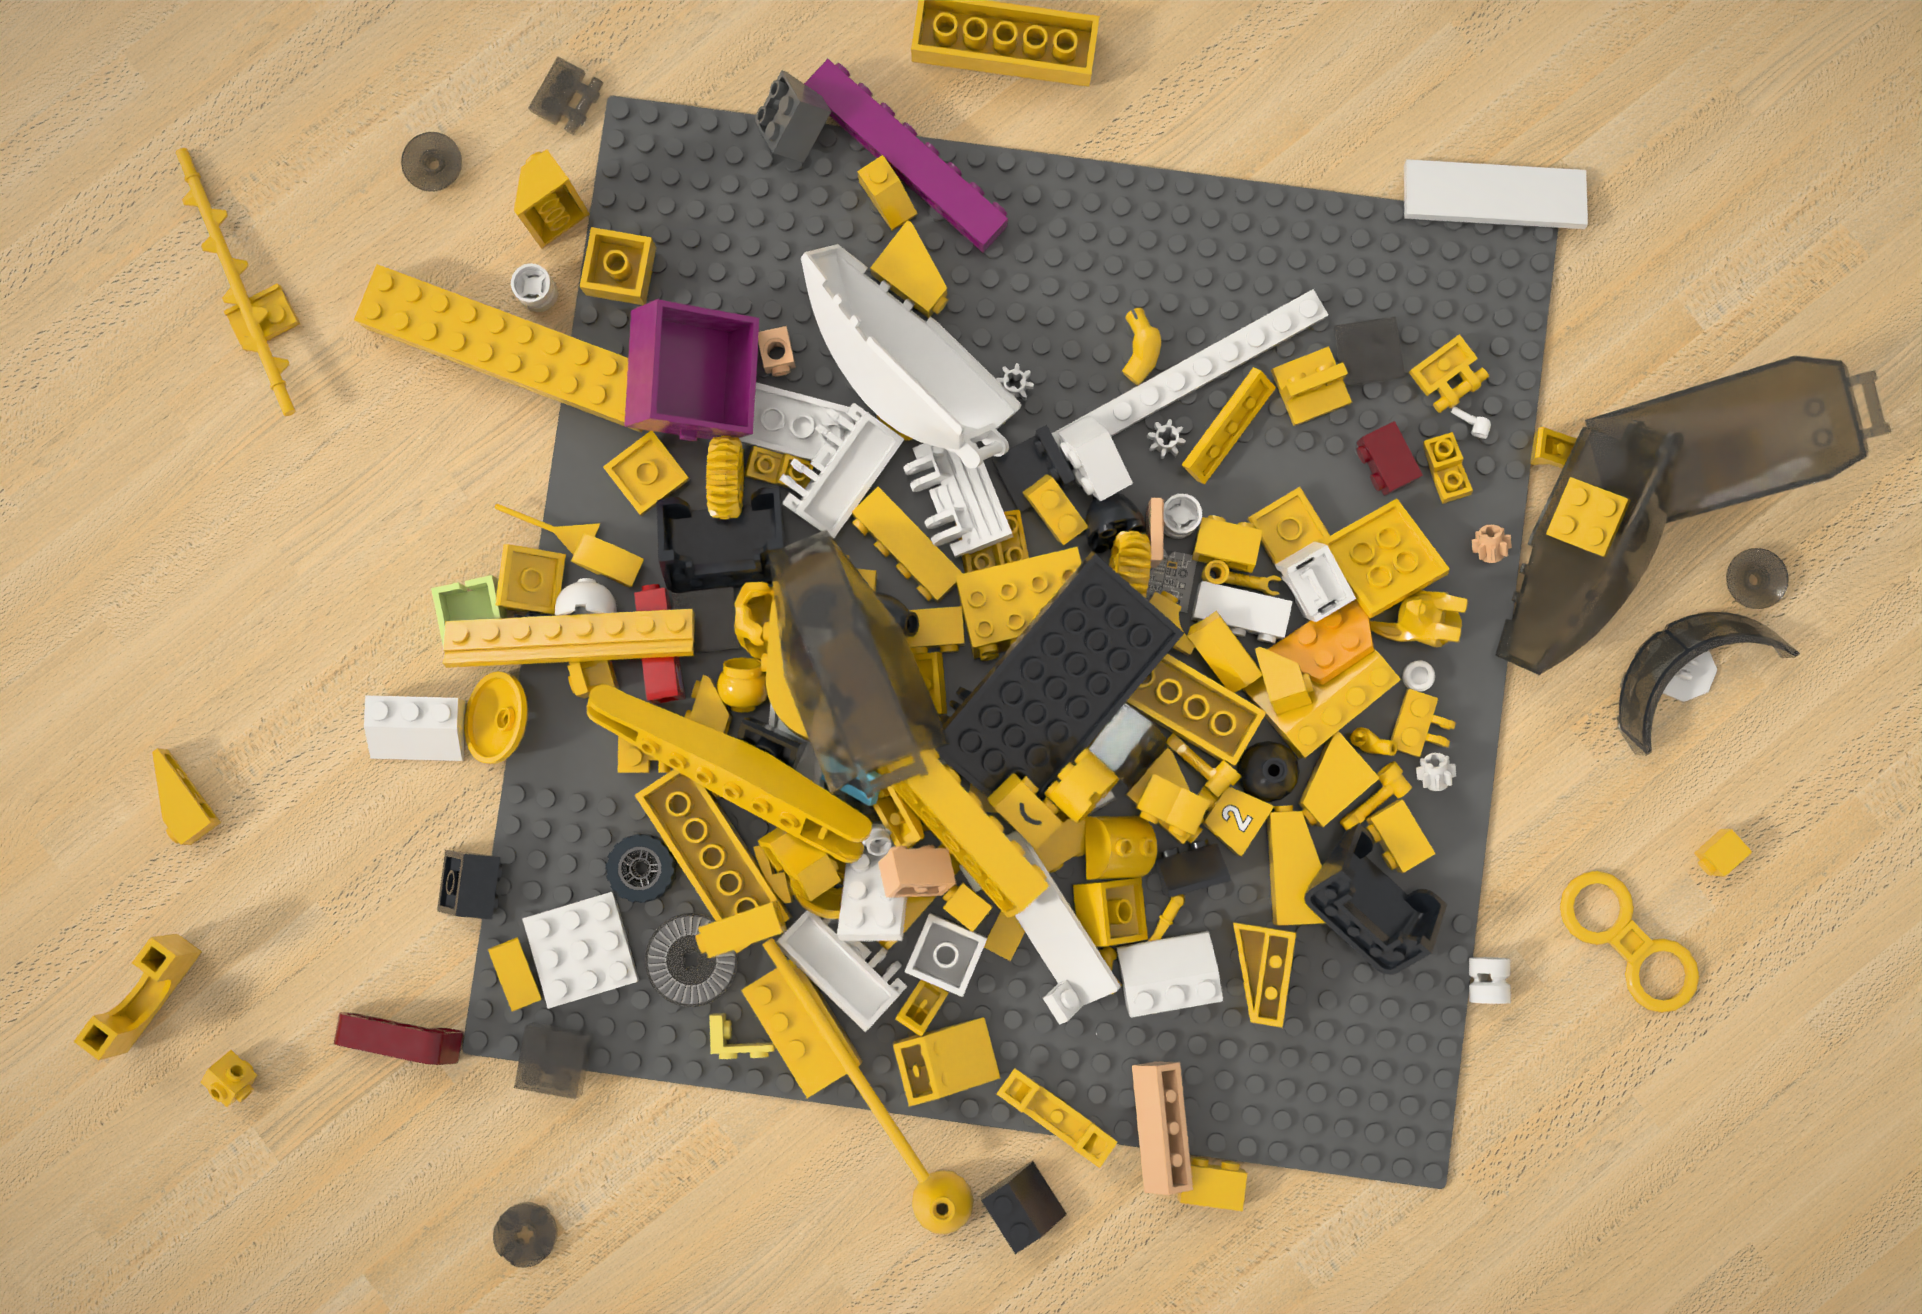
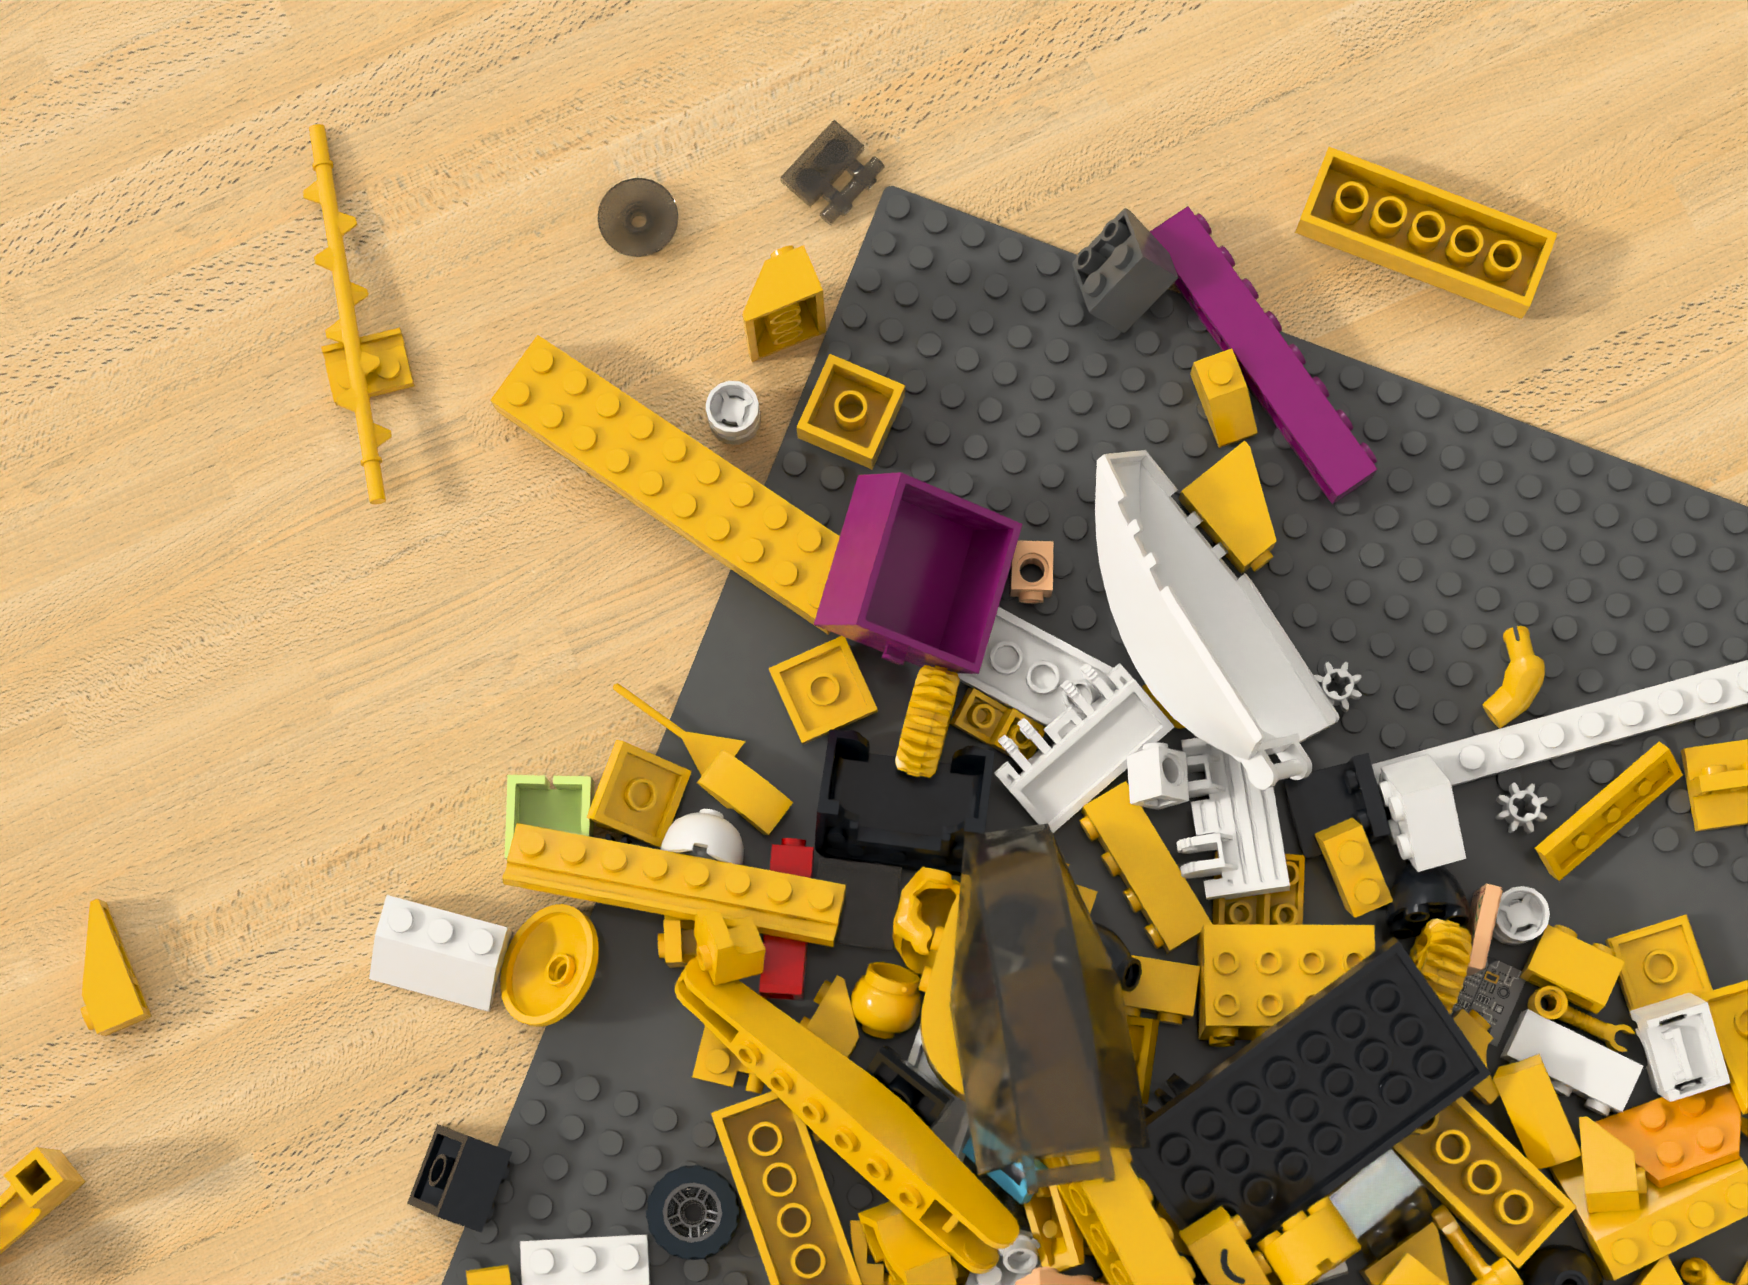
camera: 15 degrees right, 5 degrees down
(616, 673) = (728, 946): none -> yellow brick
(899, 478) = (1157, 777): none -> white brick

